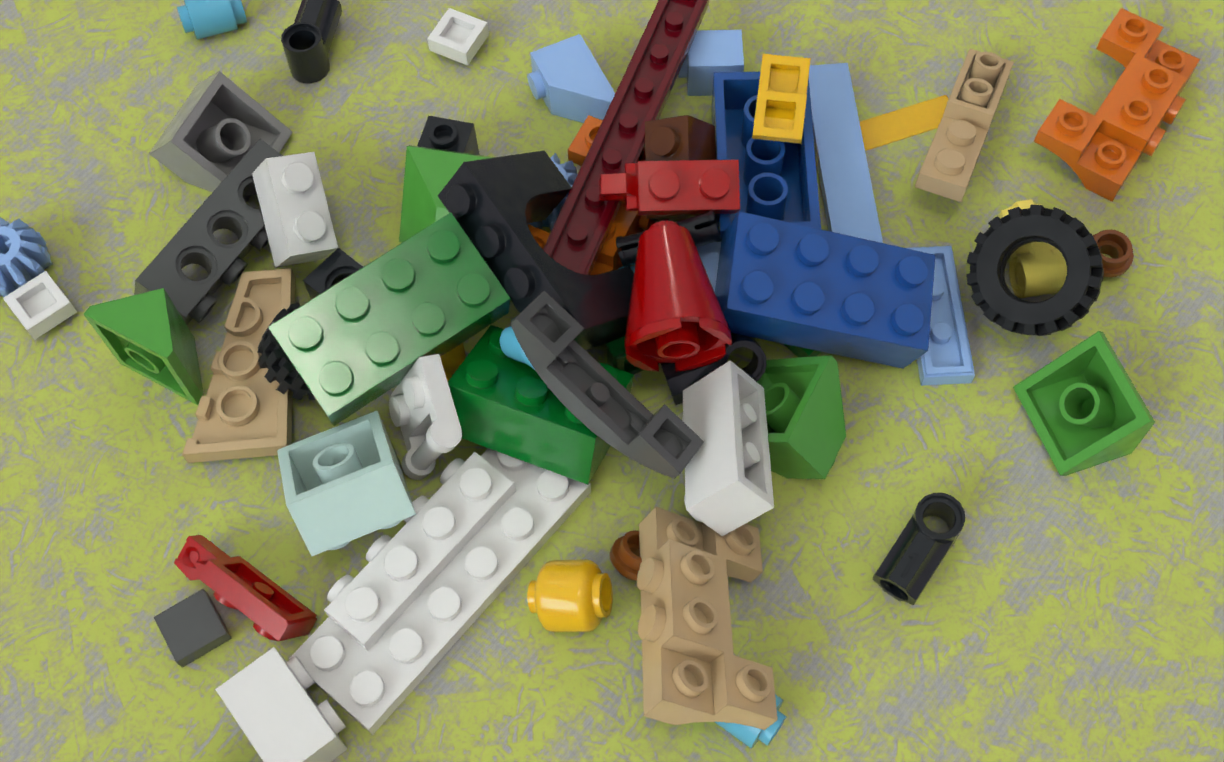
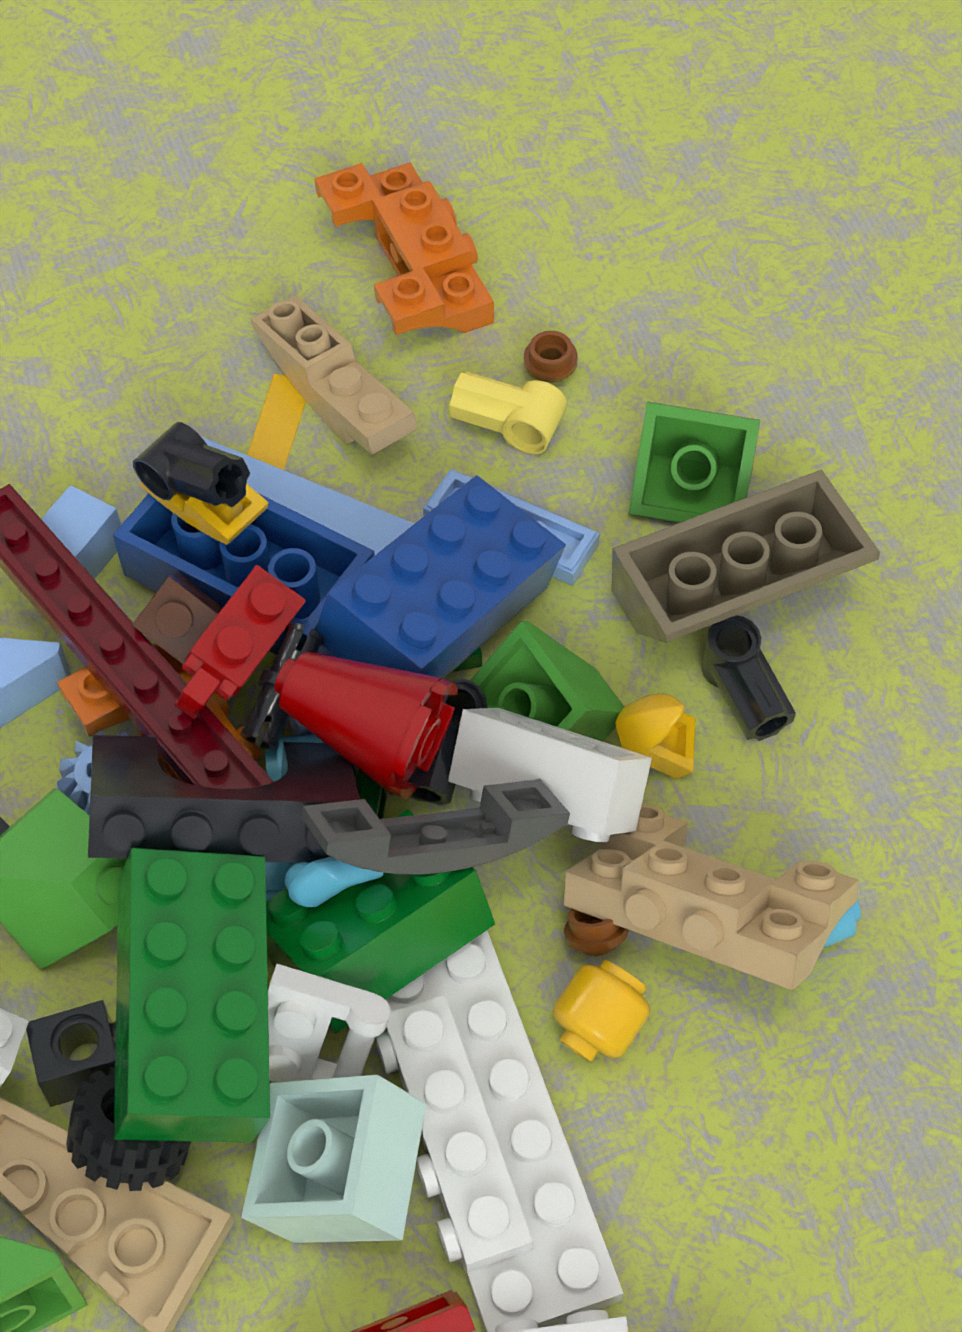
camera: 60 degrees left, 5 degrees down
(780, 74) = (187, 465): none -> black piece
(822, 510) = (660, 731): none -> yellow plate
(1006, 236) = (580, 385): black tyre -> none
(1020, 482) = (738, 558): none -> dark tan slope

